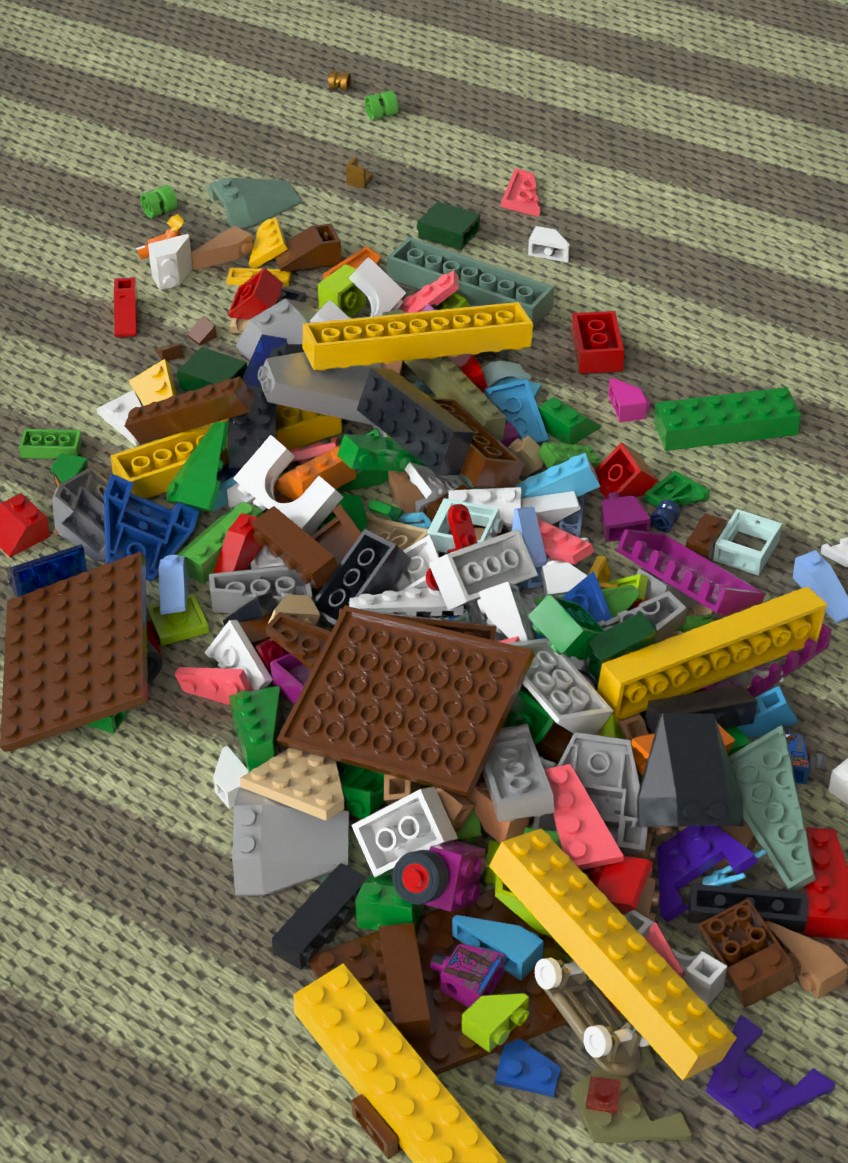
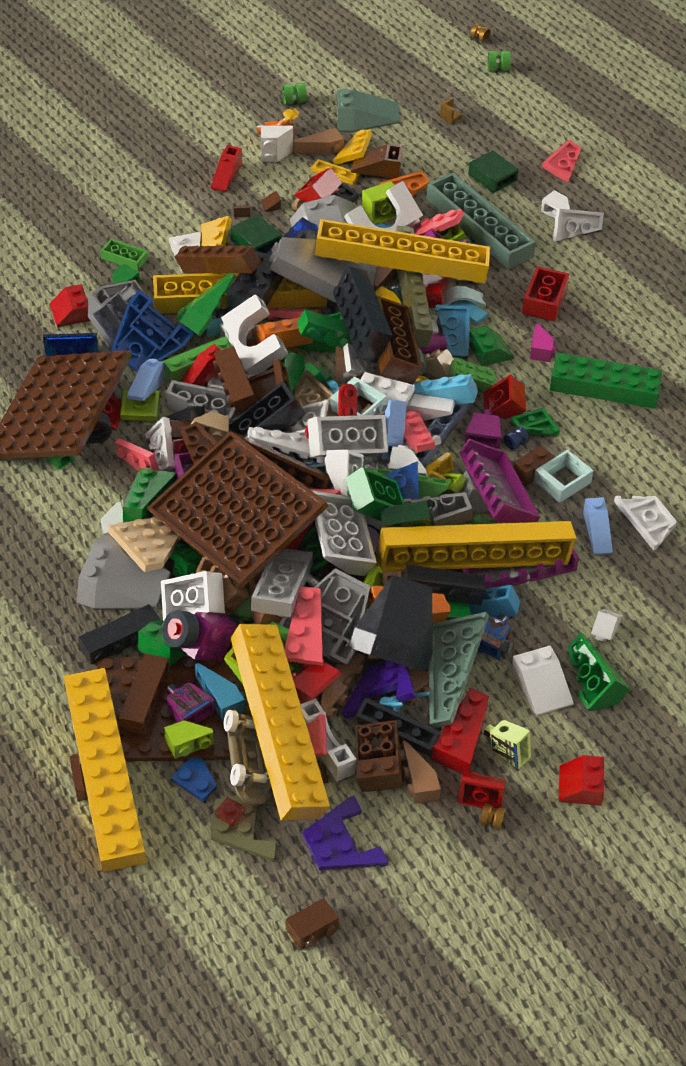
camera: 20 degrees right, 5 degrees up
(580, 255) = (576, 222): none -> white wing

